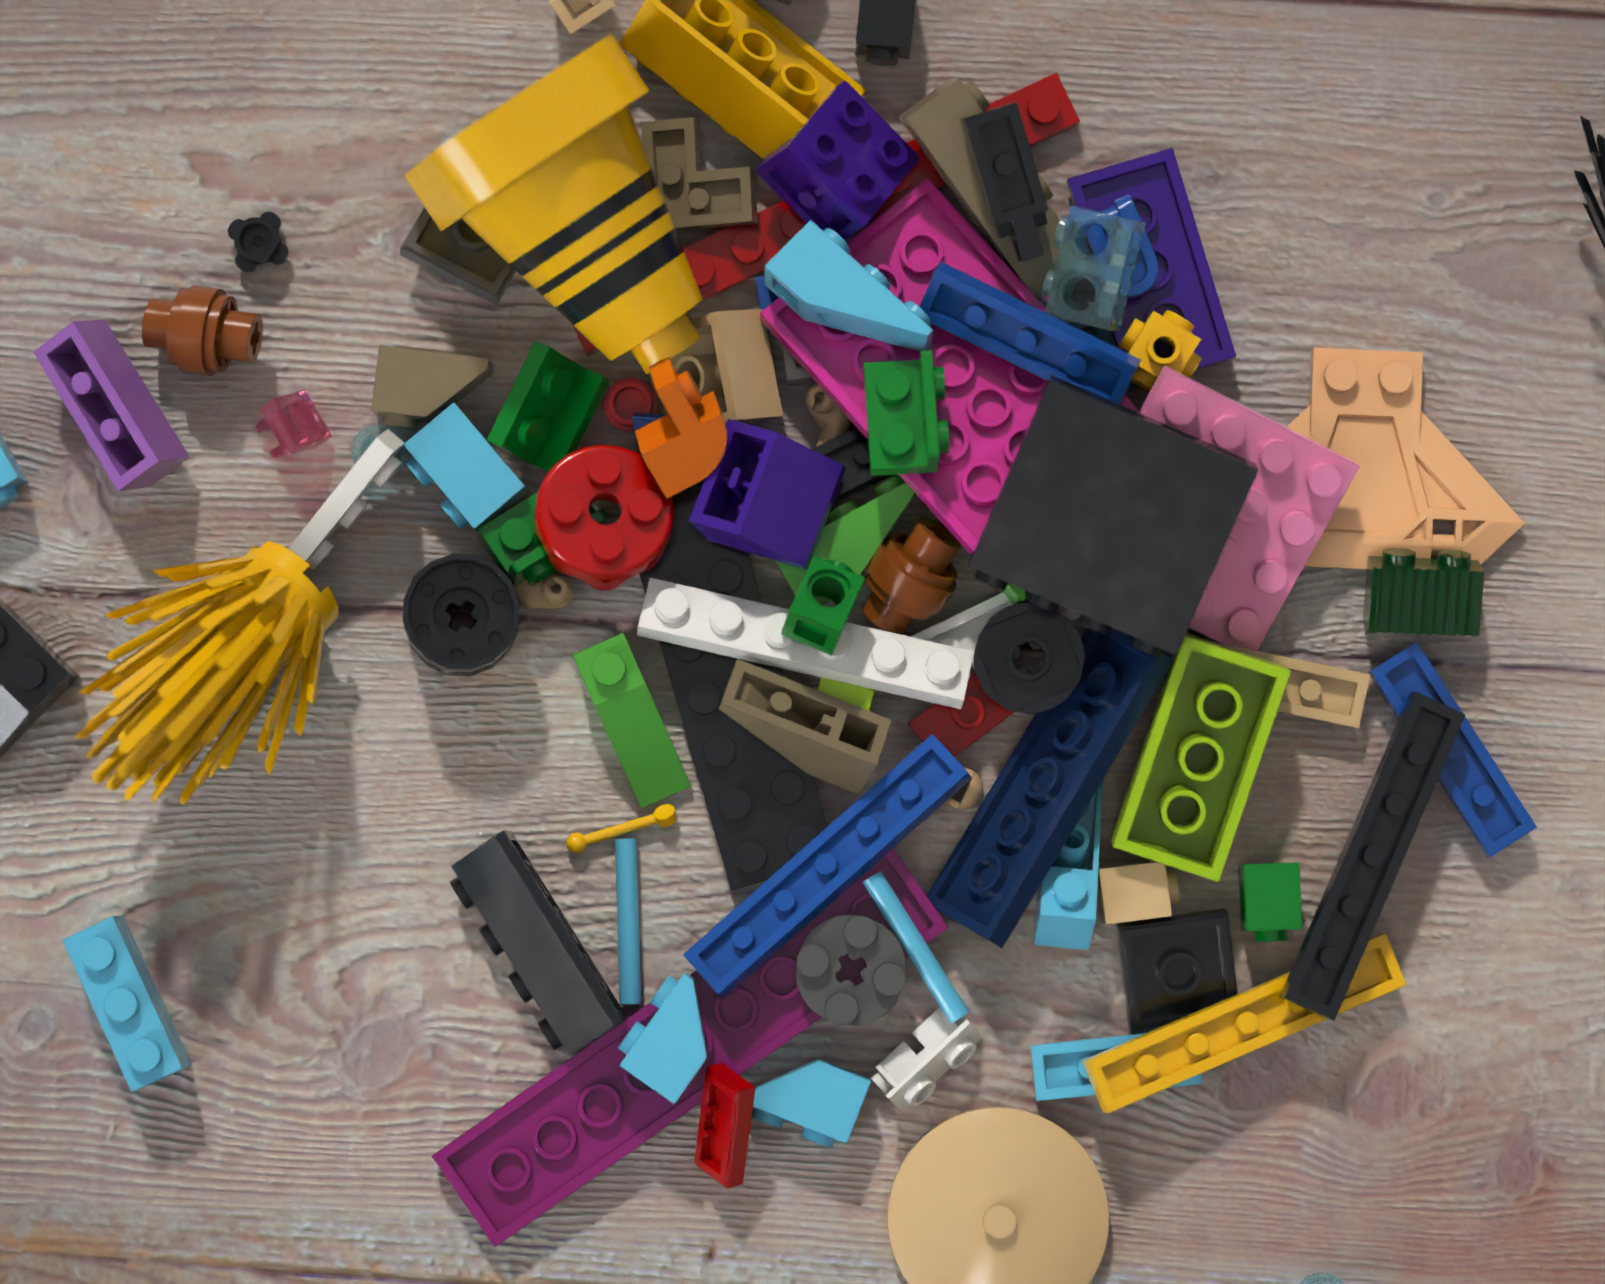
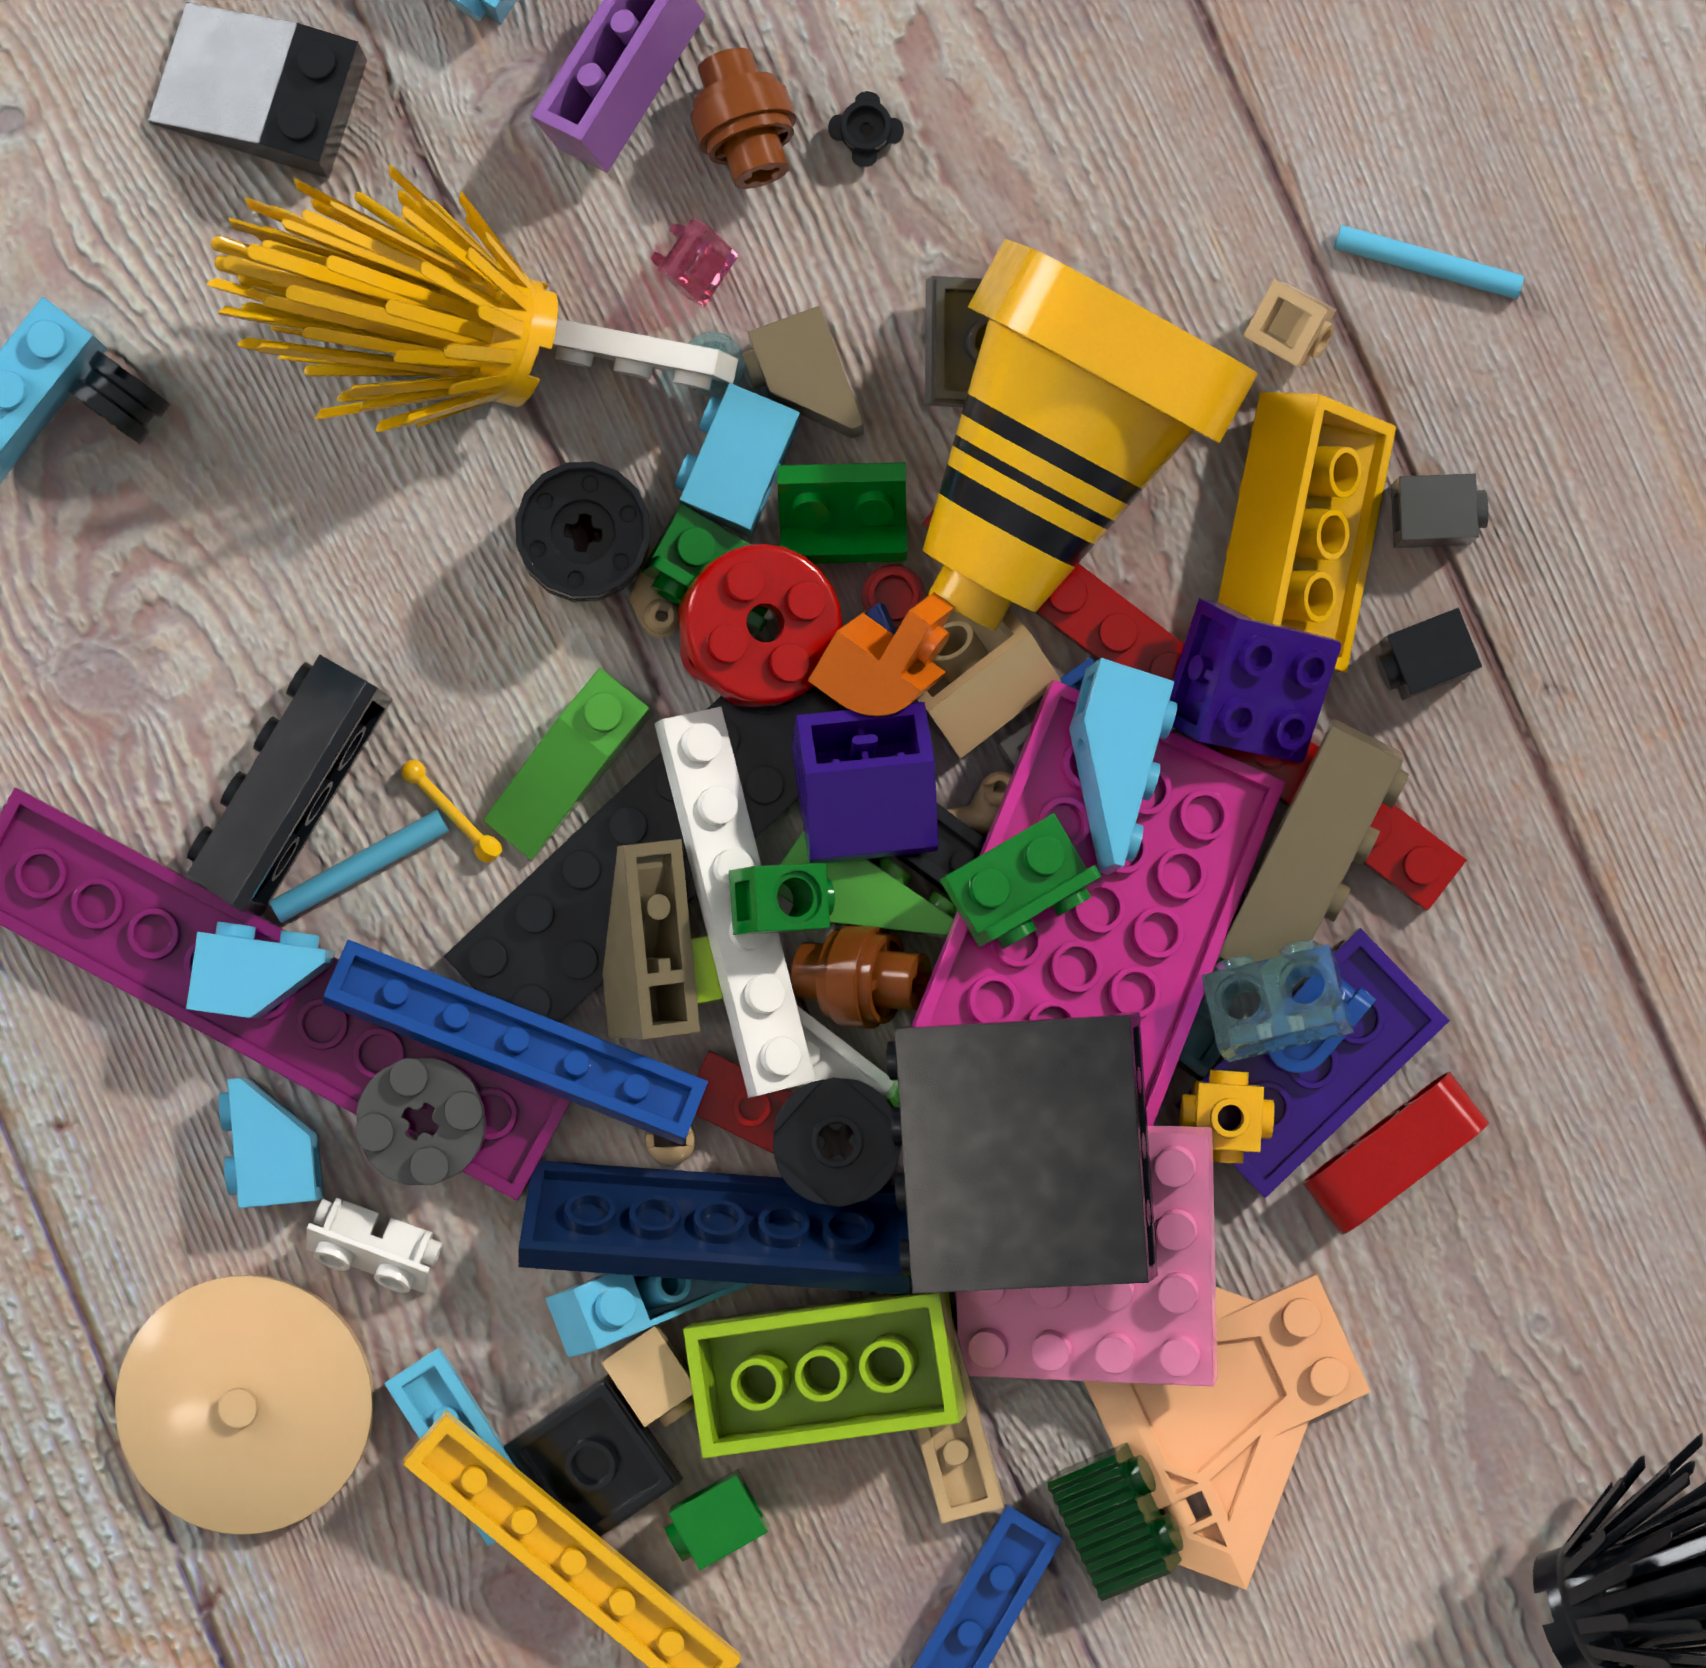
camera: 65 degrees right, 0 degrees up
(169, 922) = (118, 397): none -> black wheel
(696, 196) = (1143, 539): dark tan plate -> none
(724, 1125) = (195, 1072): red plate -> none
(915, 947) = (478, 1176): medium azure bar -> none
(1008, 177) = (1325, 863): black hinge -> none
(1025, 334) = (1170, 967): blue plate -> none
(1251, 240) = (1395, 1153): none -> red beam
(1372, 856) = (812, 1605): black plate -> none

